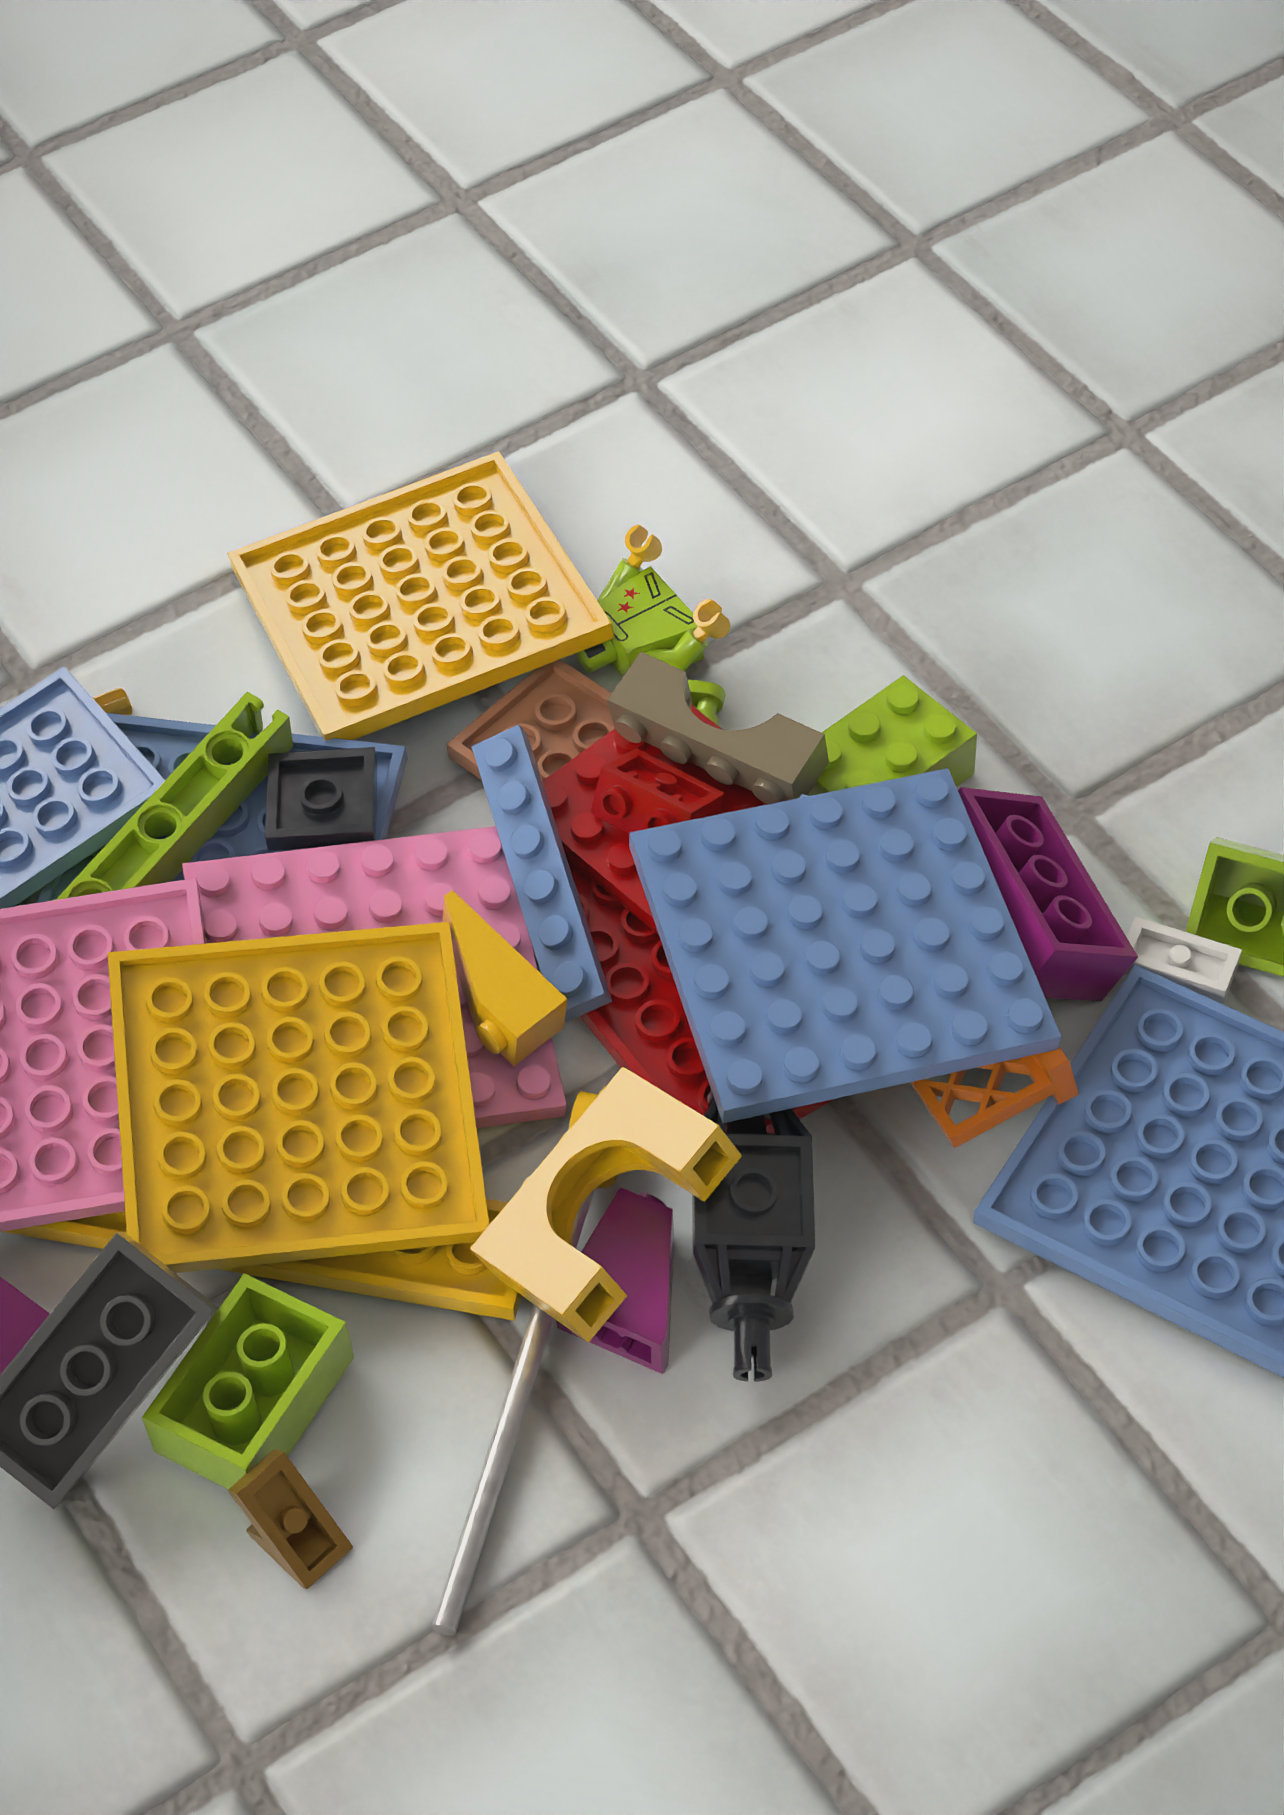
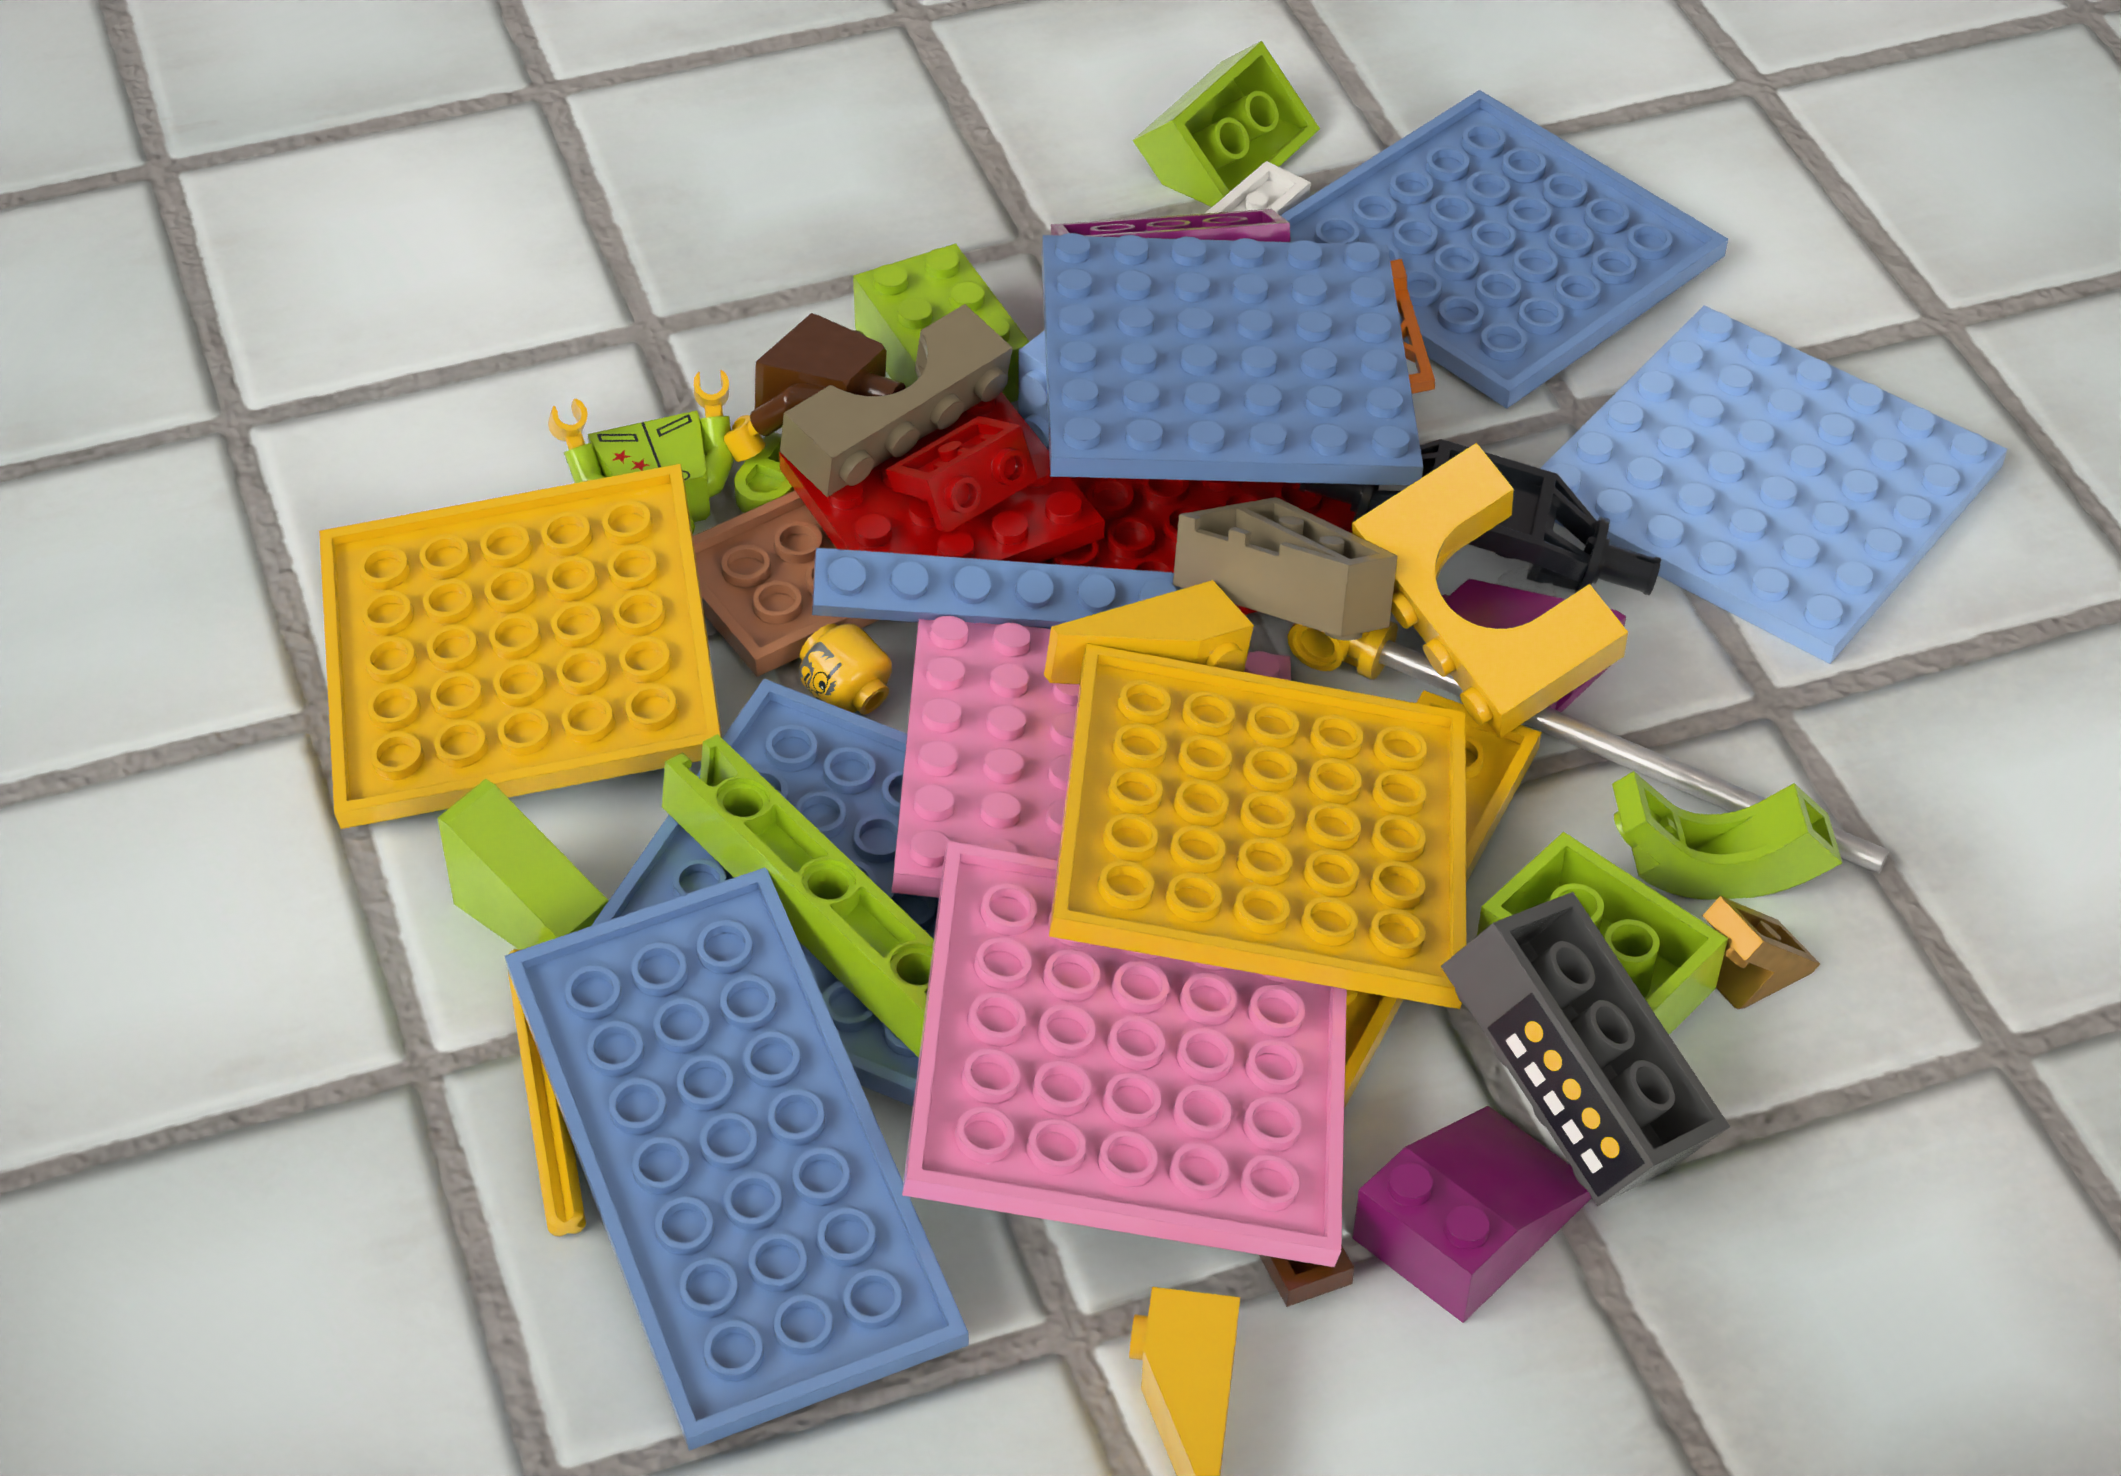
camera: 80 degrees left, 5 degrees down
(172, 660) = (511, 872): none -> lime slope
(321, 798) = (829, 749): black plate -> none
(399, 1461) = (1725, 854): none -> lime arch
(453, 800) = (845, 668): none -> yellow head
(606, 1027) = (1288, 566): none -> dark tan wedge
(749, 679) = (803, 364): none -> reddish brown torso
(955, 1472) = (1772, 480): none -> light blue plate

